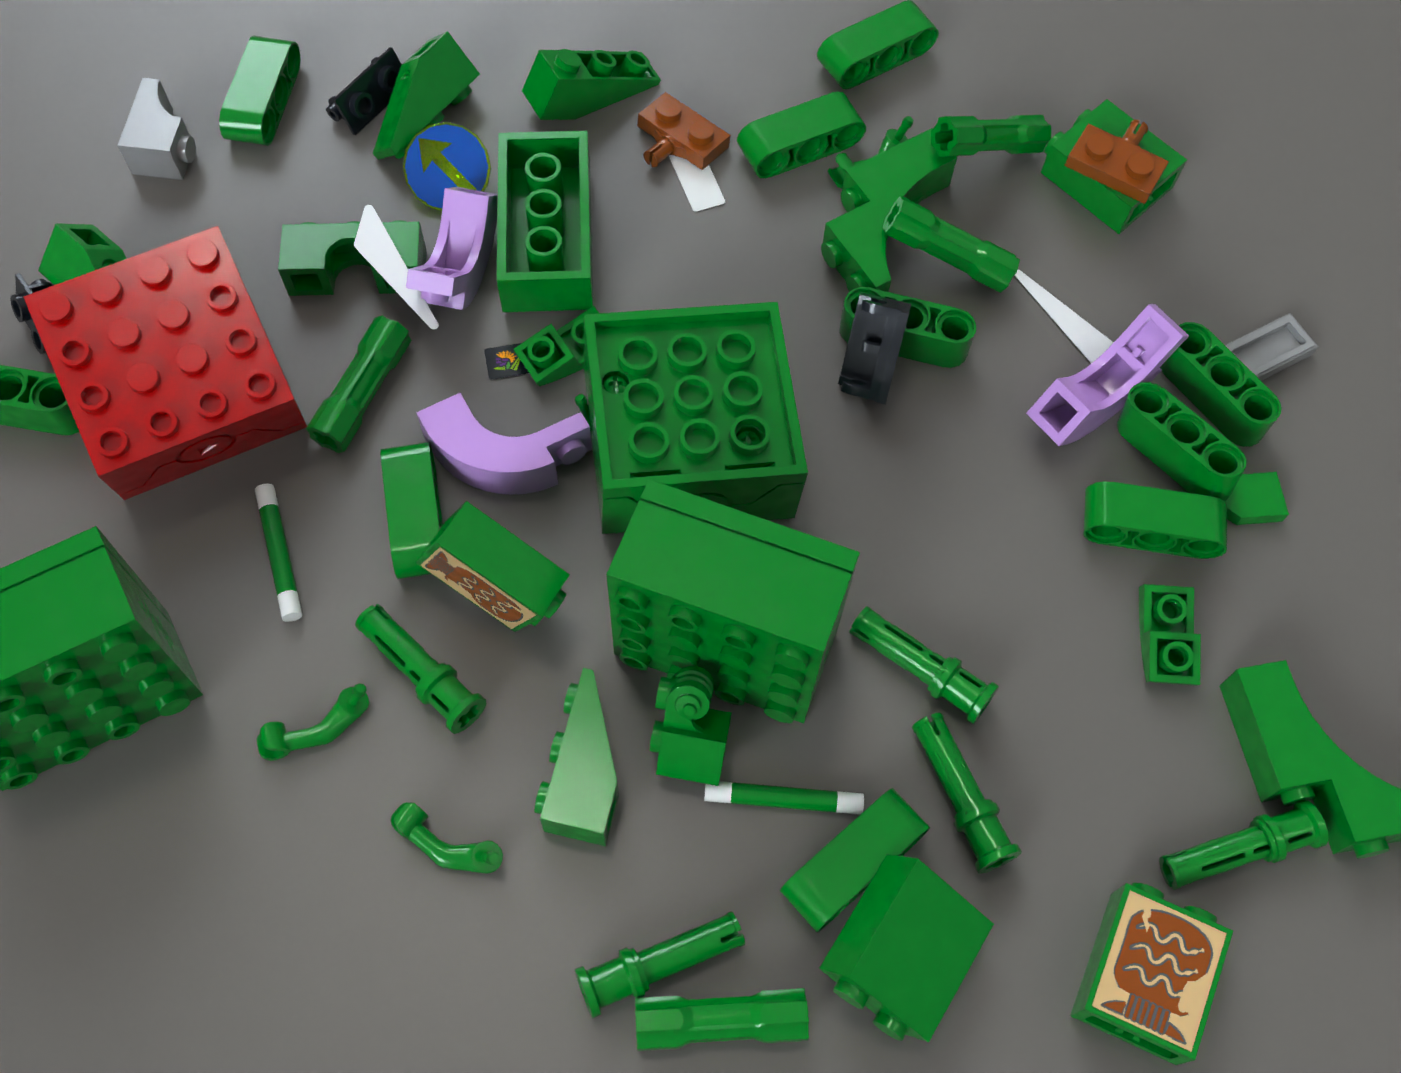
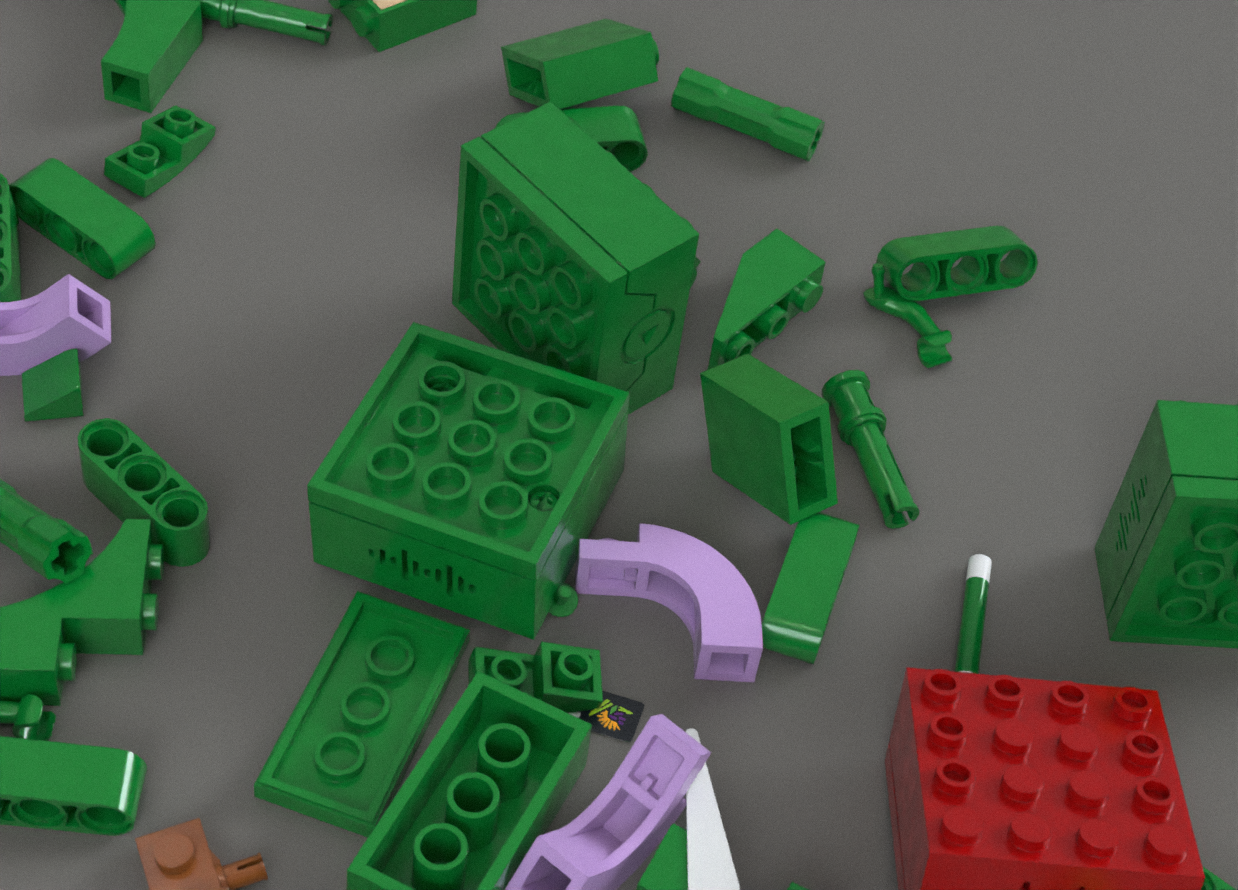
camera: 155 degrees left, 15 degrees down
(277, 743) = (1034, 457): green piece -> none
(343, 410) = (770, 773): green axle -> none
(423, 923) = (976, 272): none -> green beam
(635, 971) = (797, 165): green pin -> none
(657, 255) = (362, 714): none -> green tile
(698, 184) = (223, 813): white sticker -> none
(873, 347) = (208, 457): black hinge -> none
(942, 675) = (419, 273): green pin -> none
(974, 814) = (448, 124): green pin -> none
(1030, 377) = (53, 388): none -> green slope

